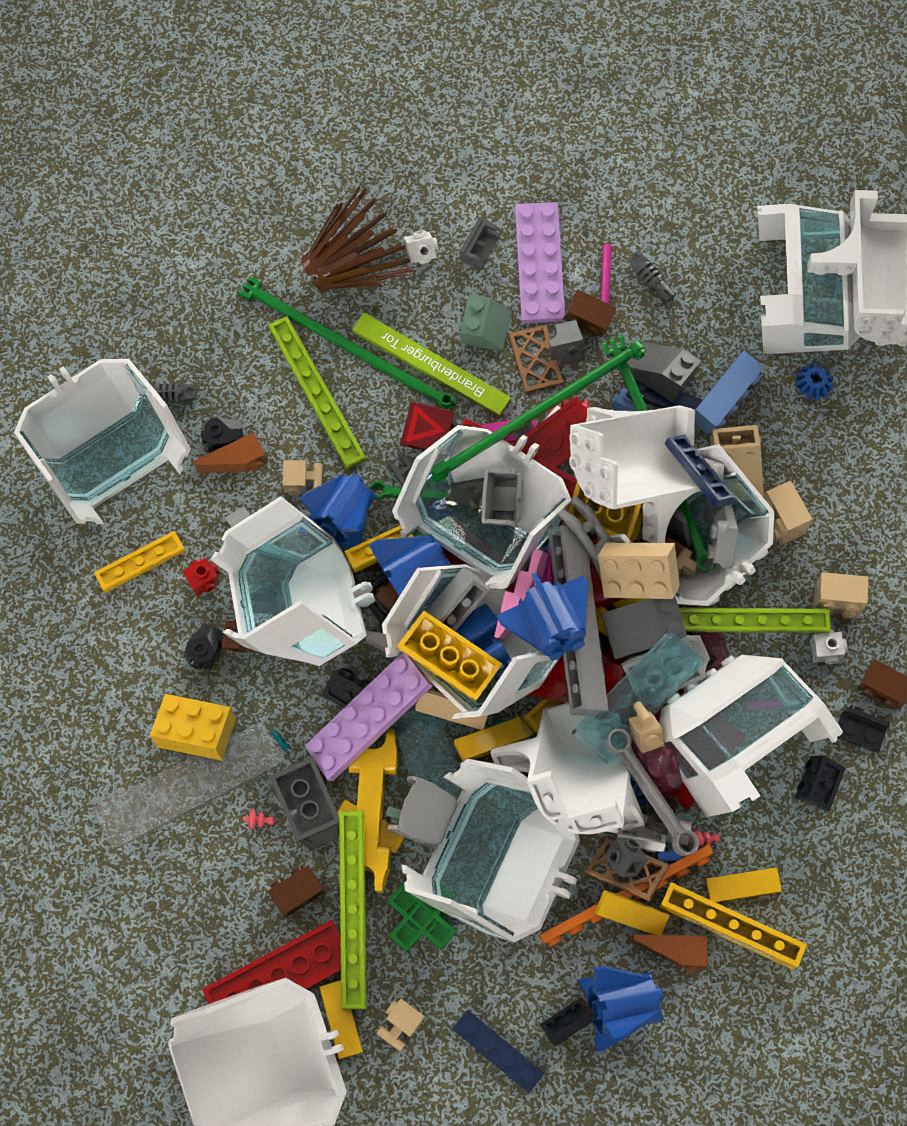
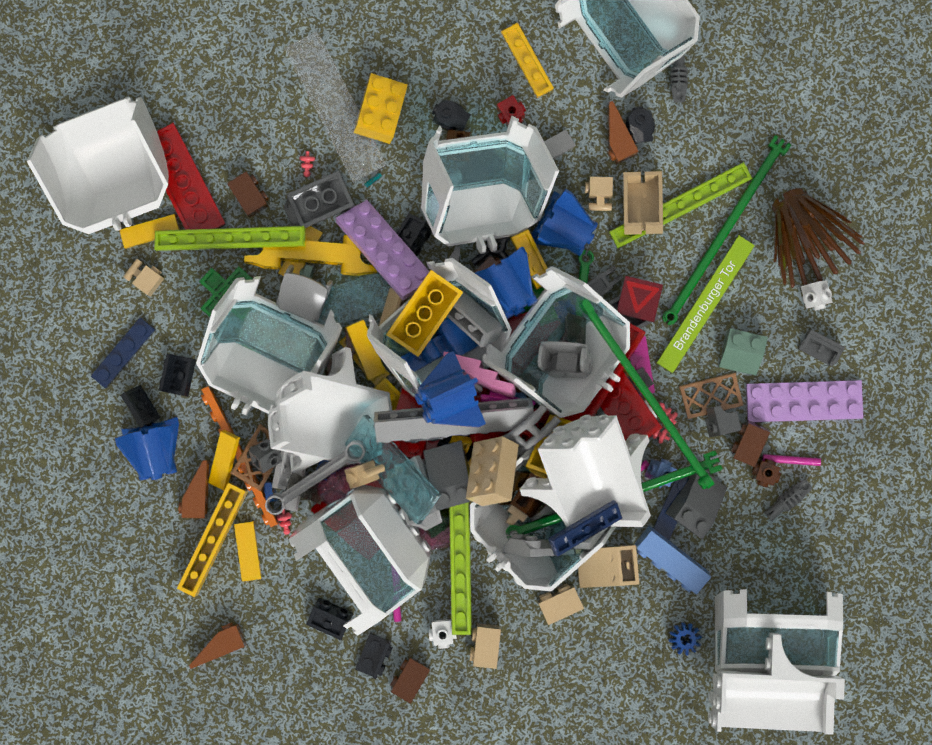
camera: 85 degrees right, 15 degrees up
(315, 425) = (643, 203): none -> tan piece
(526, 977) = (177, 375): none -> black bracket
(623, 297) = (759, 473): none -> reddish brown brick
(861, 913) = (223, 643): none -> dark orange slope

